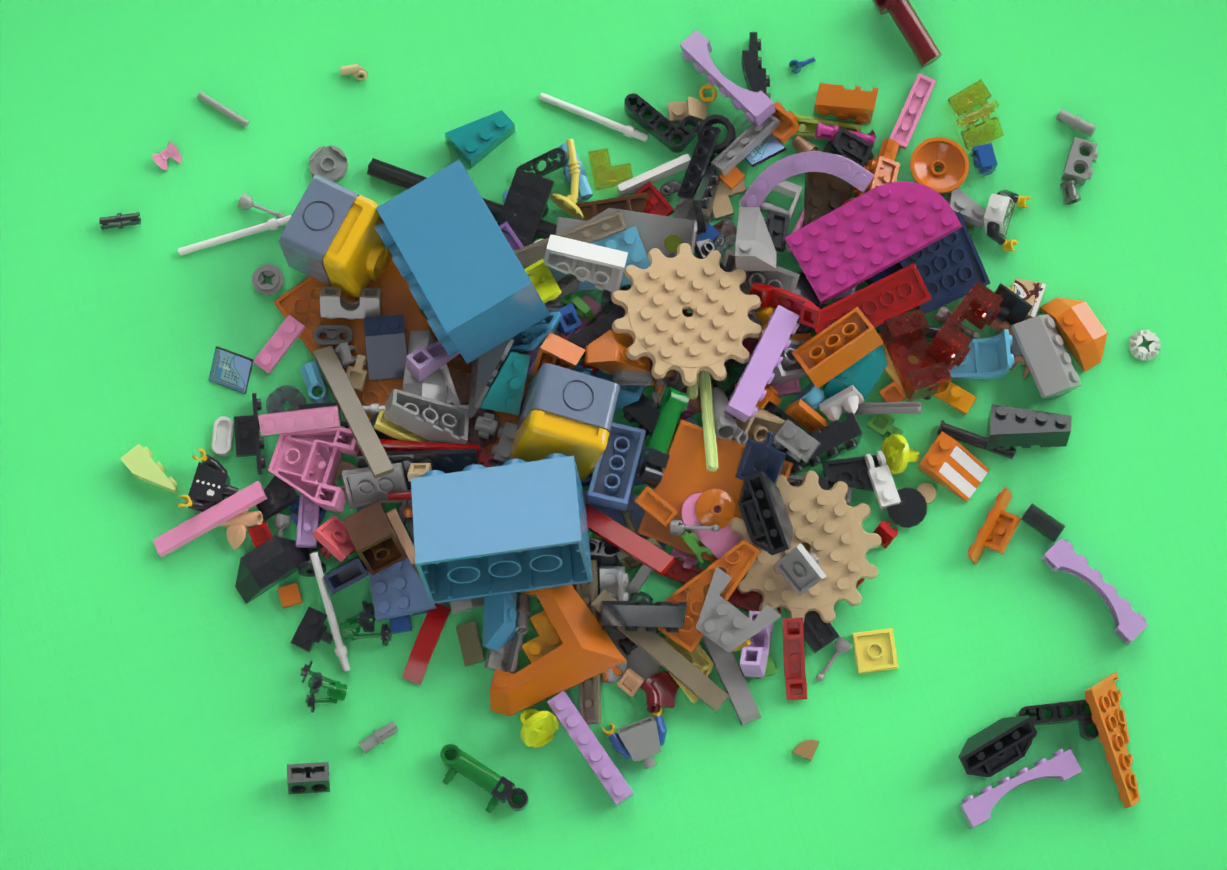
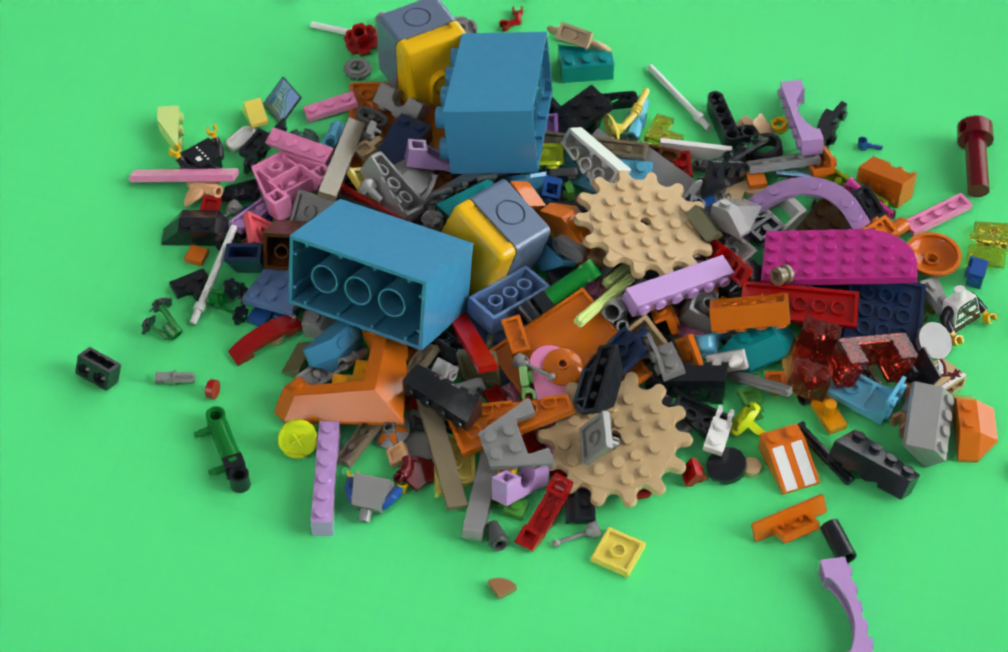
camera: 35 degrees right, 25 degrees down
(215, 400) = (255, 112): none -> light yellow slope
(245, 242) = (361, 39): none -> red plant
(375, 118) = (505, 24): none -> red arm
(409, 435) = (368, 187): none -> light grey plate
(421, 726) = (212, 389): none -> red tile
(457, 114) = (577, 37): none -> tan bar
(737, 277) = (703, 223): none -> olive slope
(770, 705) = (497, 537): none -> dark grey cone
(841, 292) = (782, 275): none -> dark tan wheel
(995, 262) = (935, 339): none -> tile

